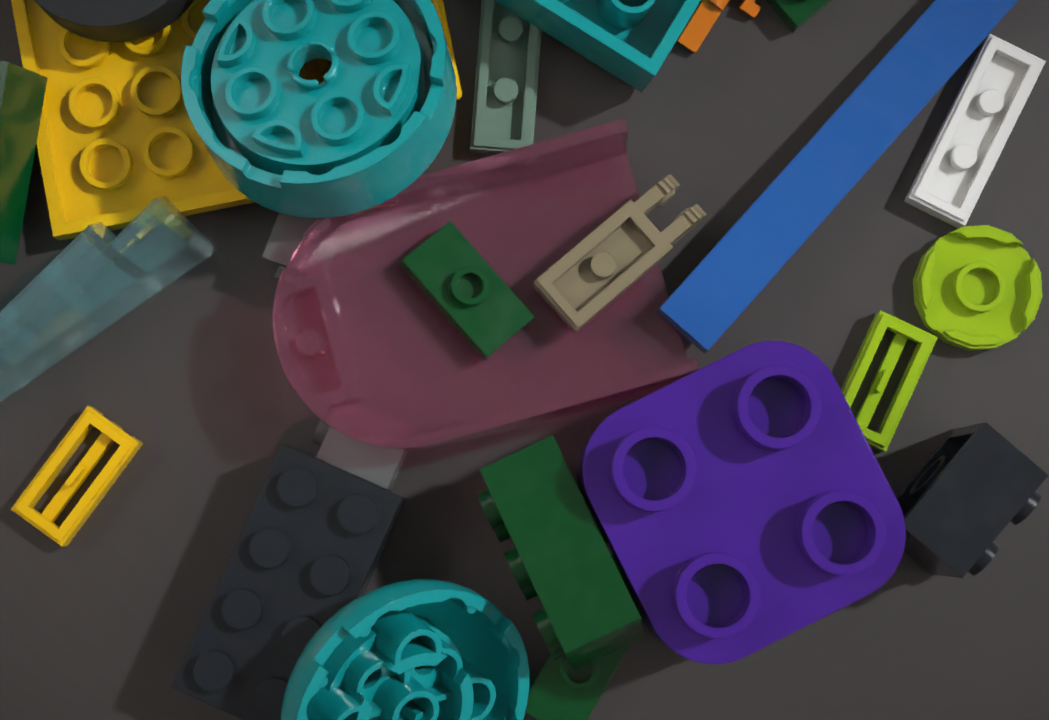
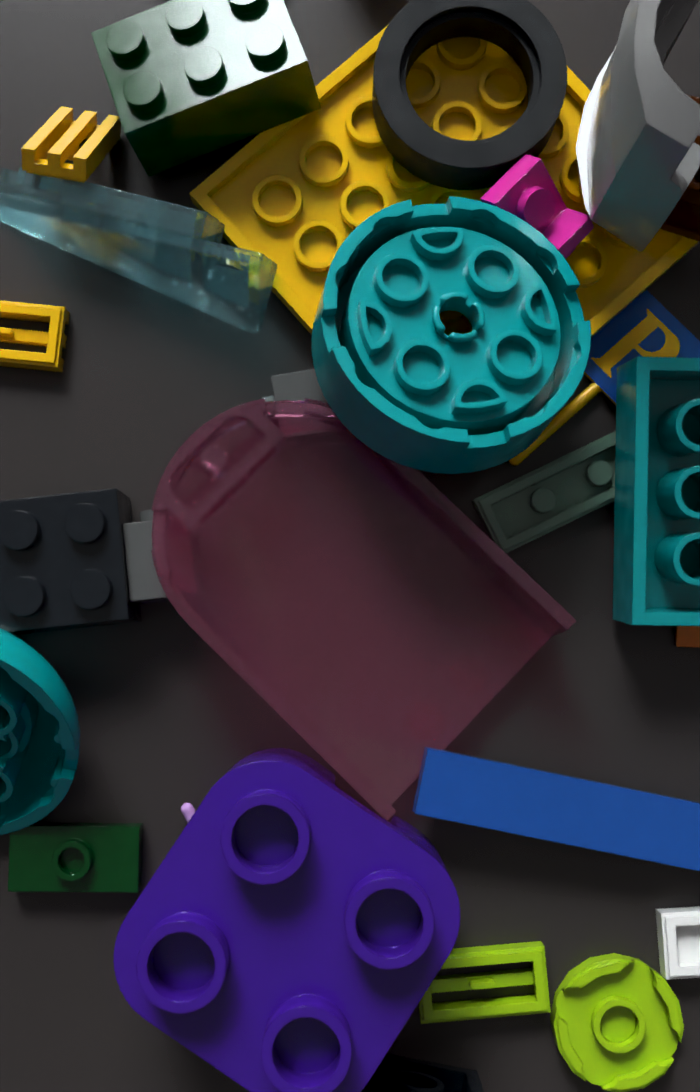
camera: 60 degrees right, 0 degrees up
(466, 290) = (344, 569): dark green plate -> none
(559, 555) = (151, 788): dark green brick -> none
(614, 257) = (450, 681): dark tan hinge -> none

